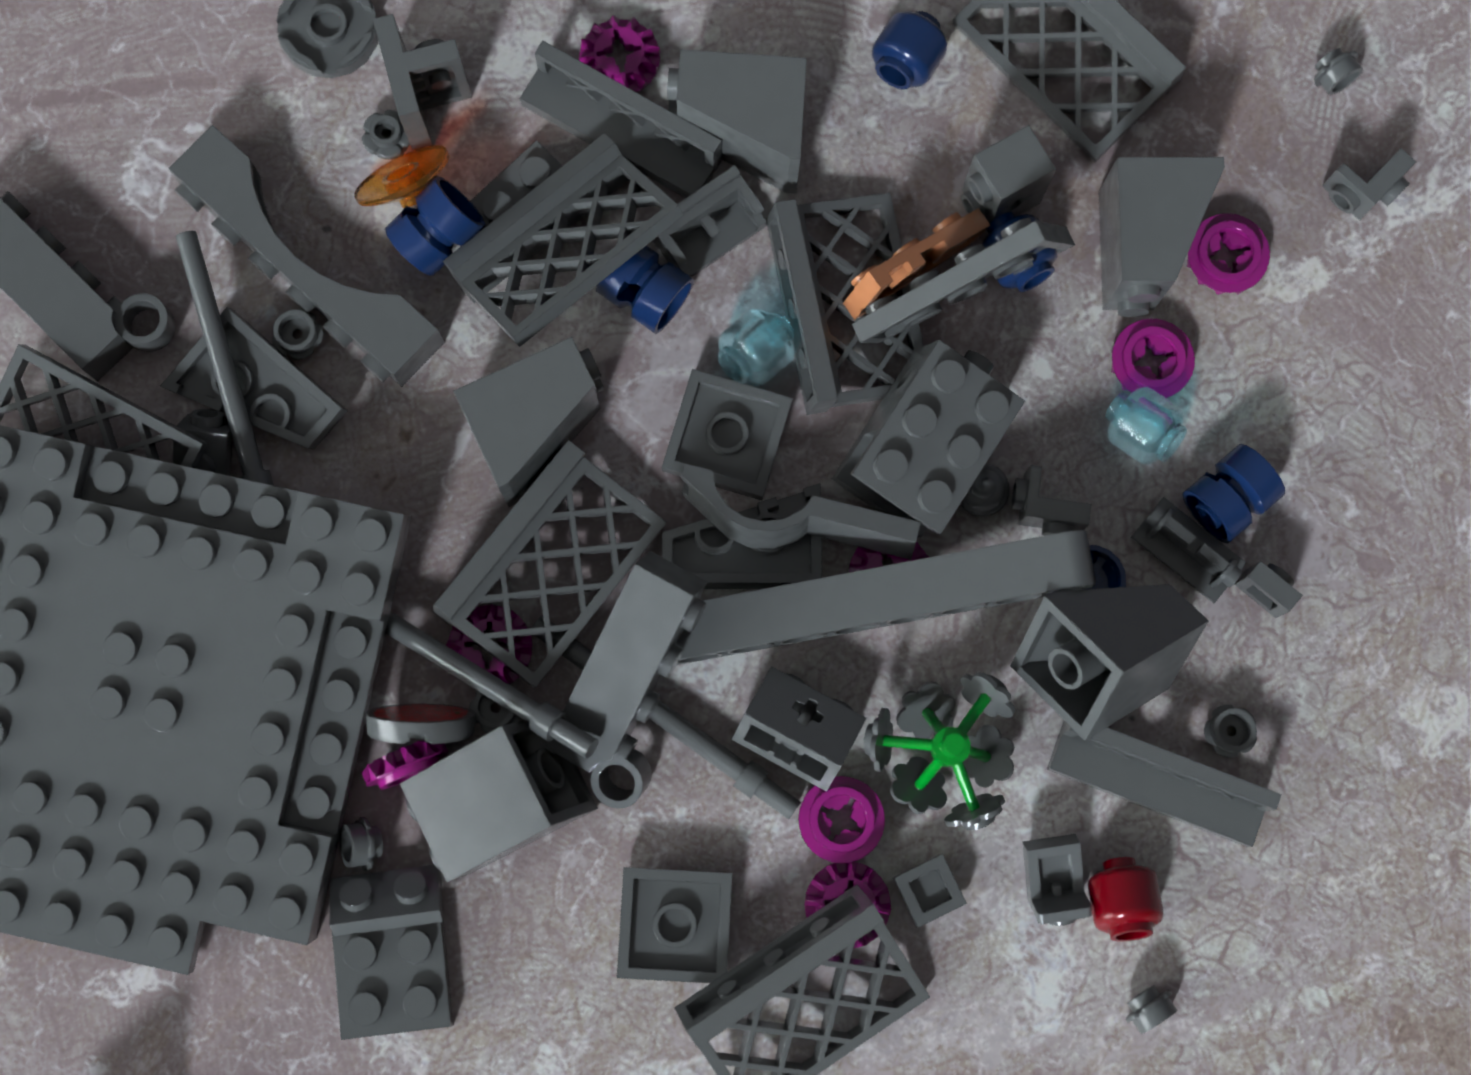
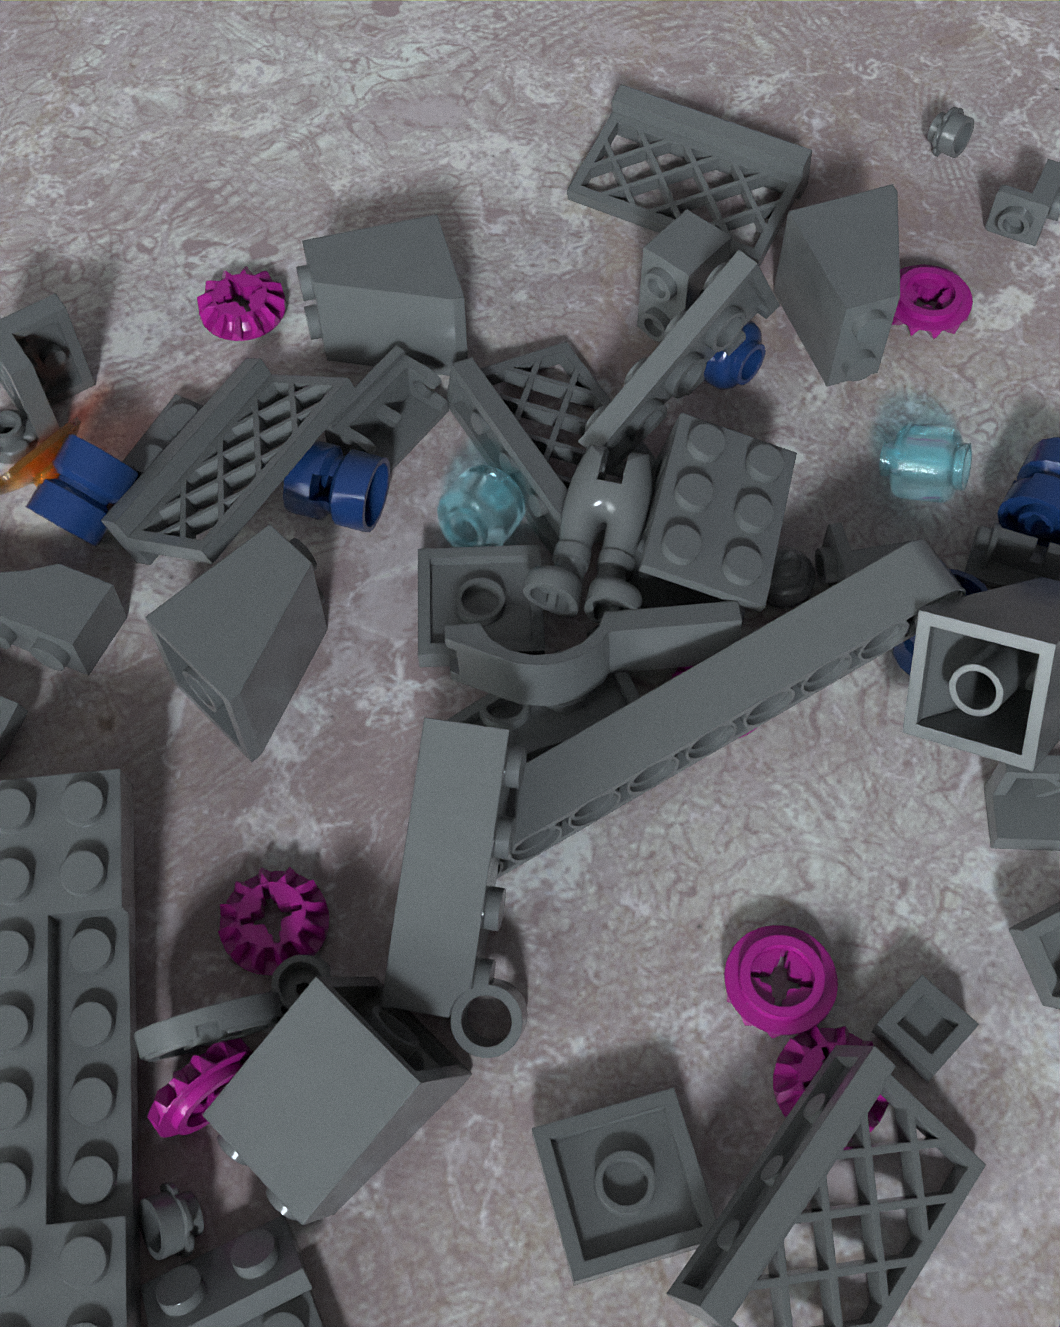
camera: 15 degrees left, 20 degrees down
(512, 537) = (260, 787): dark grey fence -> none
(542, 718) = (368, 961): dark grey bar -> none
(644, 132) = (213, 350): dark grey fence -> none
(749, 778) = (647, 968): dark grey bar -> none
(799, 728) = (688, 884): dark grey brick -> none
(828, 397) = (586, 506): none -> dark grey piece
(909, 49) = (535, 215): dark blue head -> none
(915, 260) = (603, 375): nougat wing -> none
(976, 757) = (881, 831): dark grey plant -> none
(1163, 340) = (901, 390): magenta gear -> none

